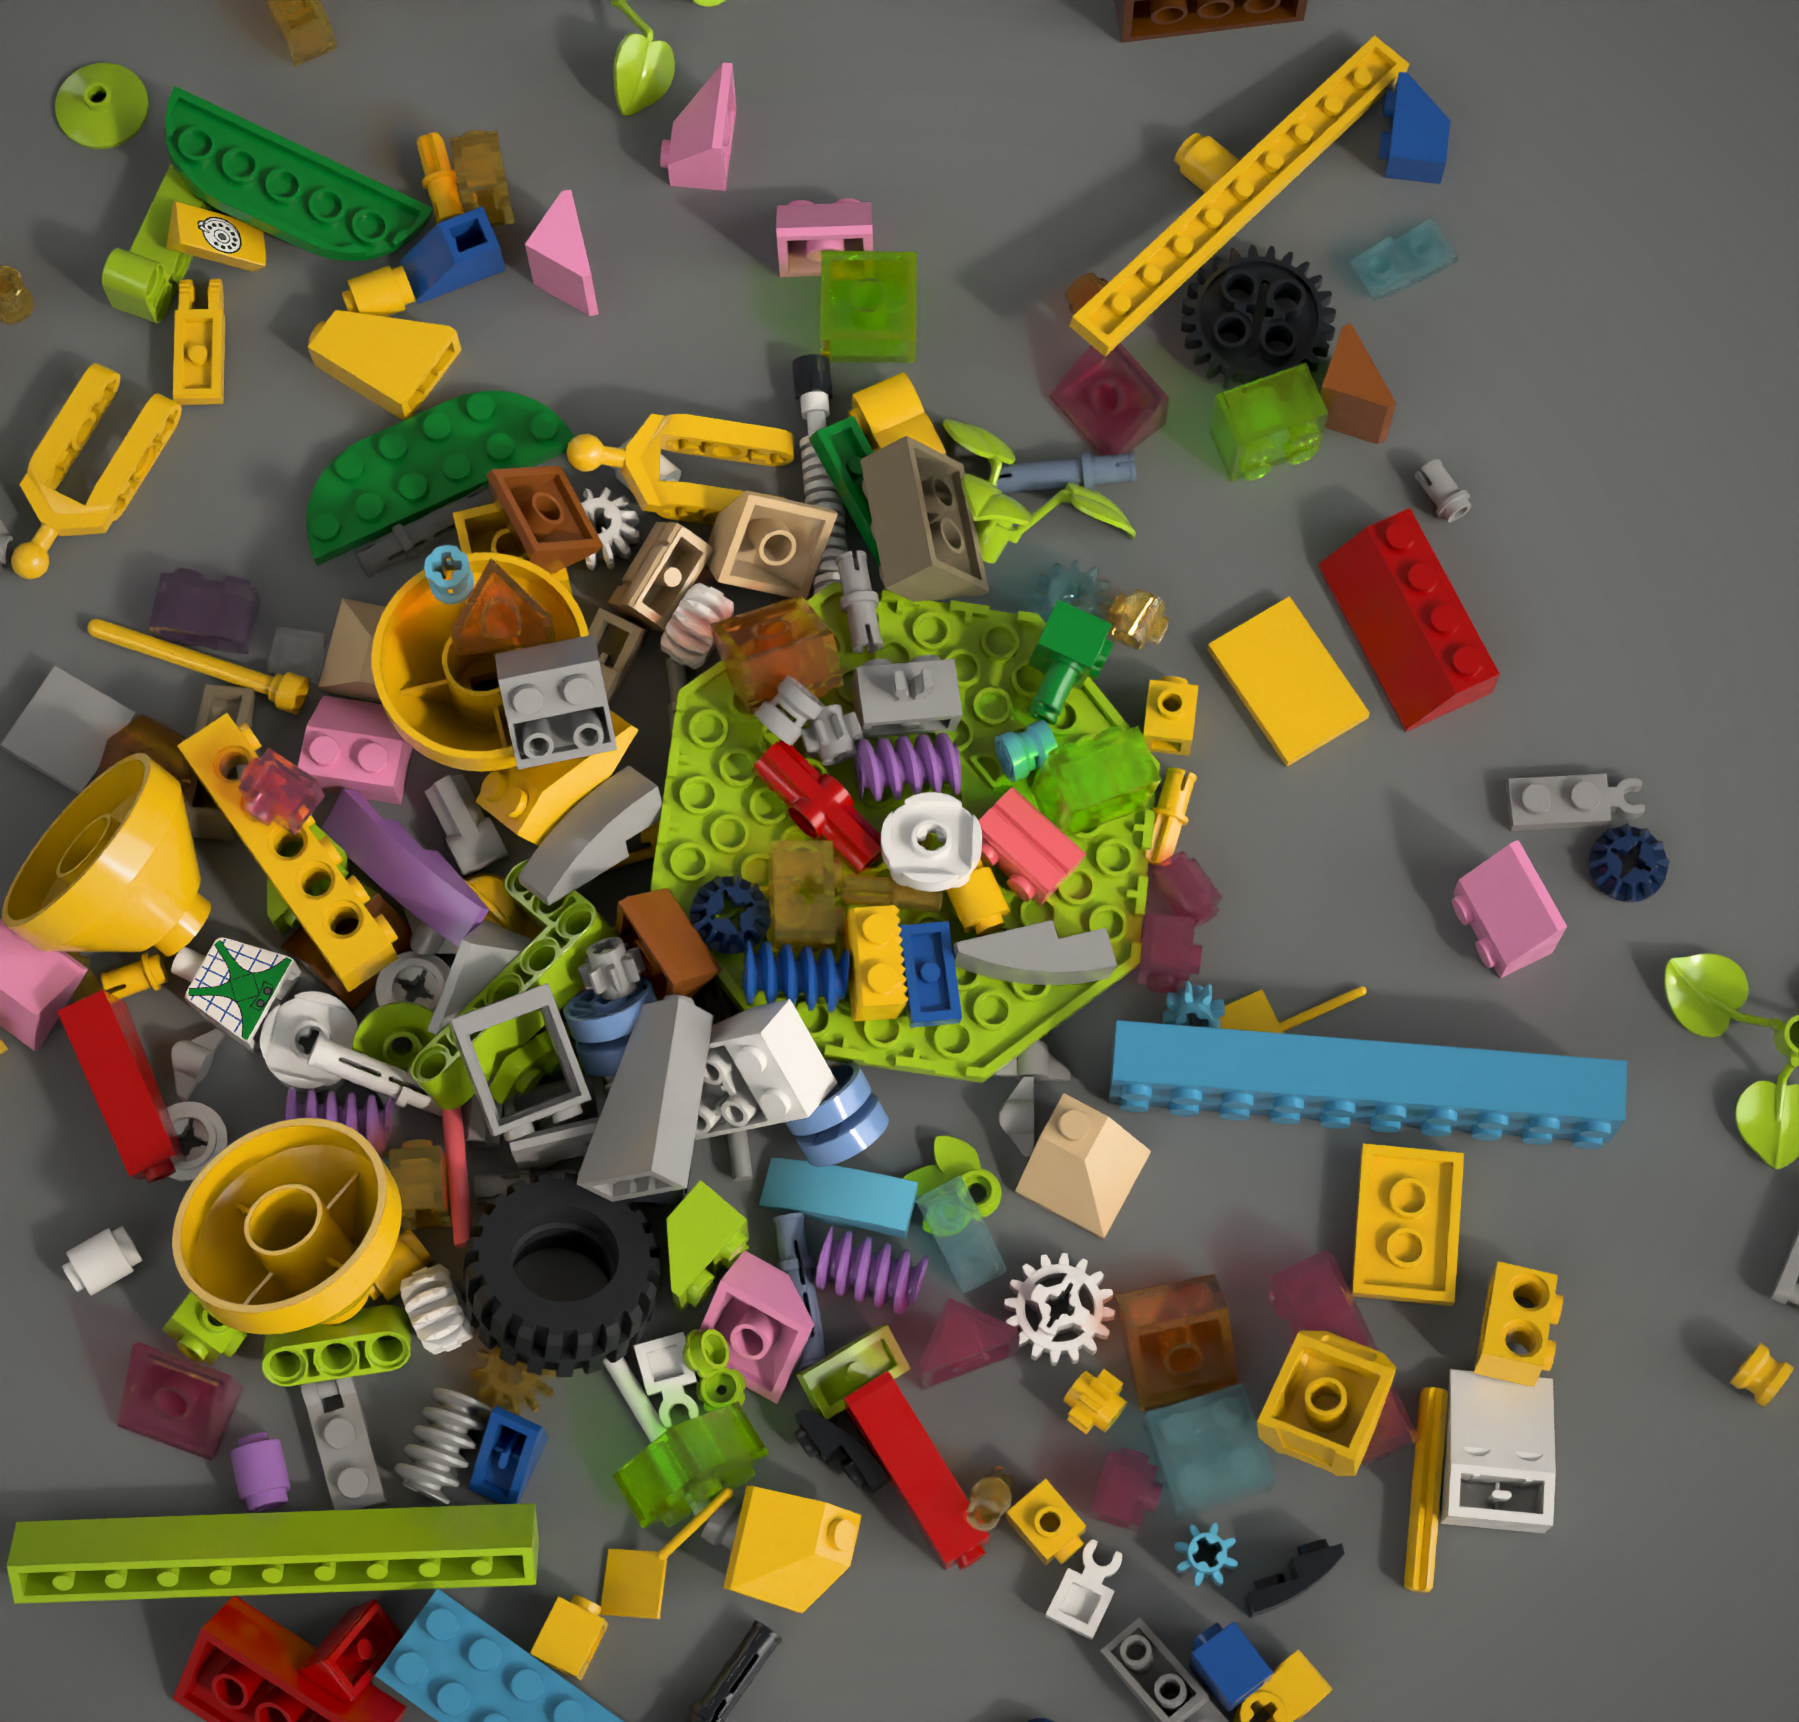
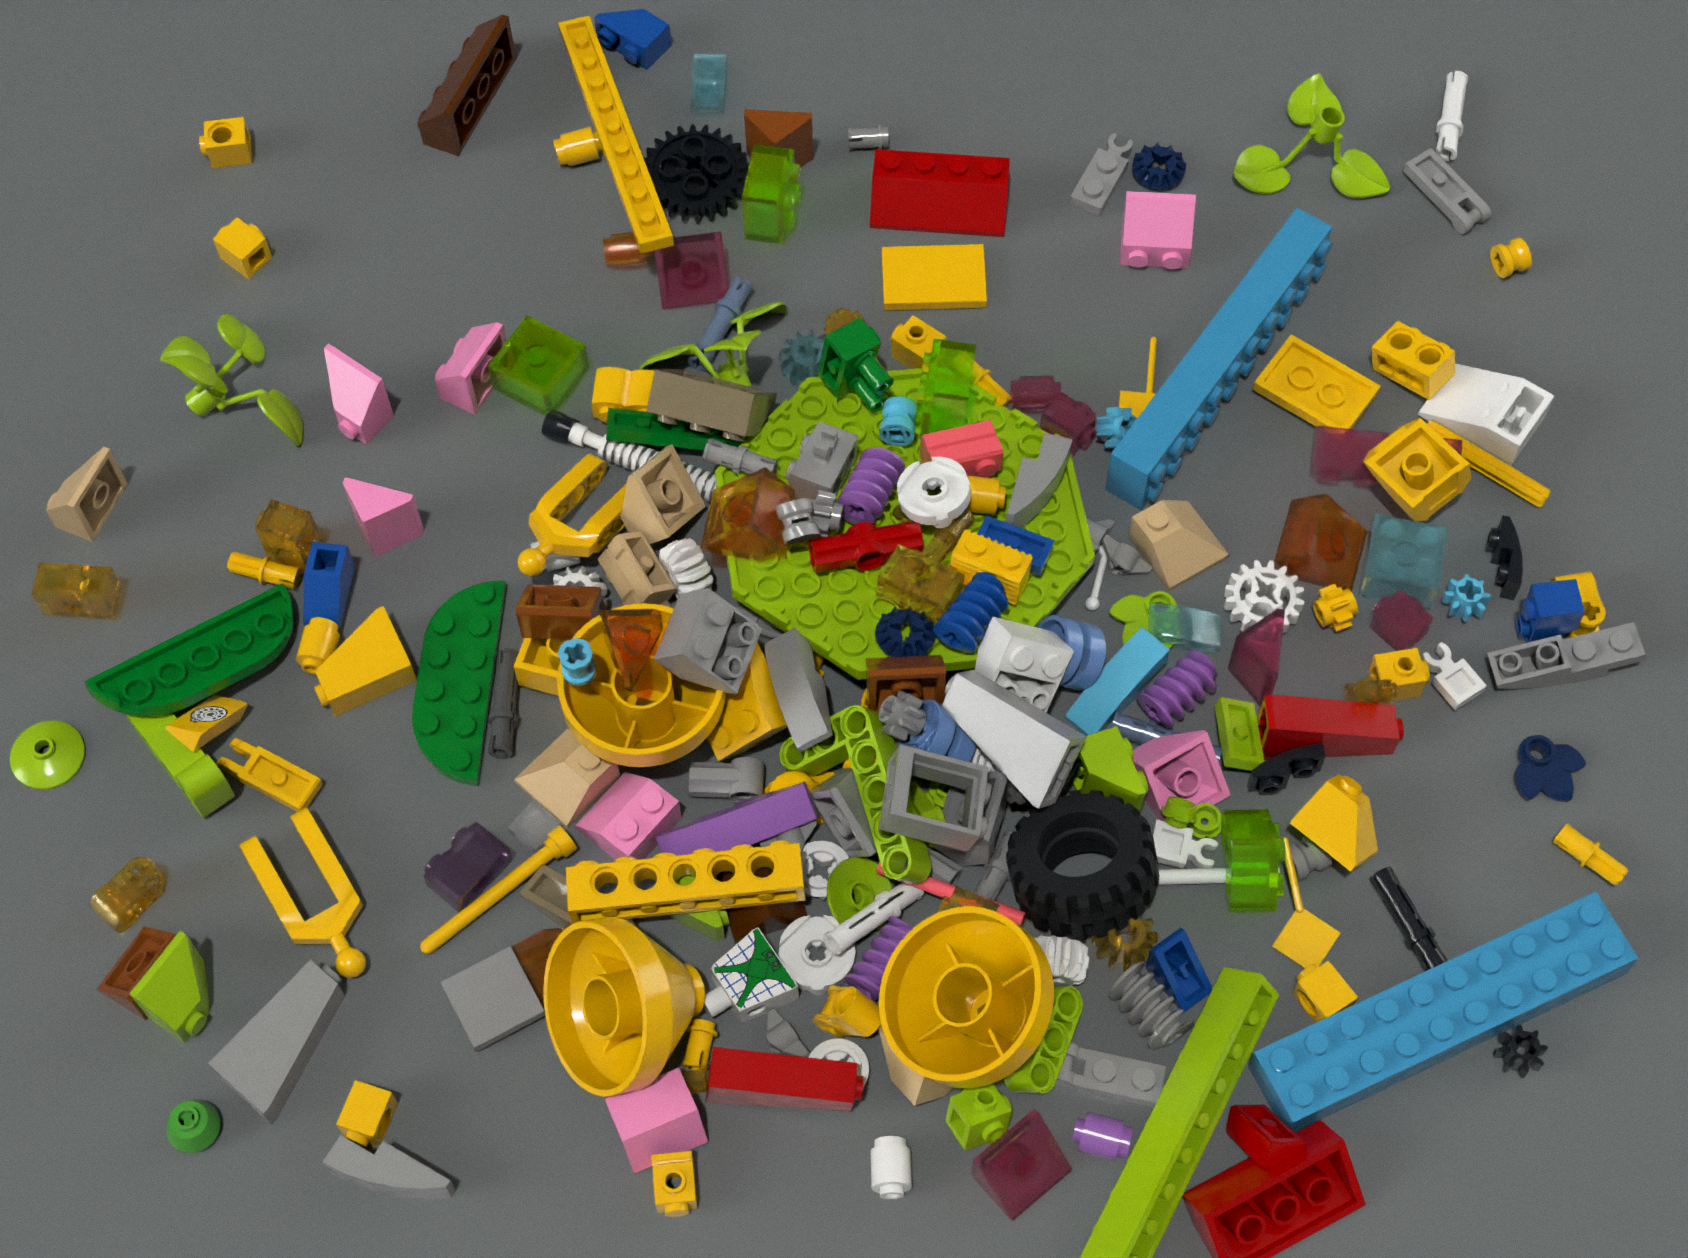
camera: 60 degrees left, 10 degrees down
(249, 1107) = (848, 1013): none -> yellow piece
(279, 791) = (650, 854): clear pink brick -> none
(941, 1111) = (1092, 602): none -> white hinge

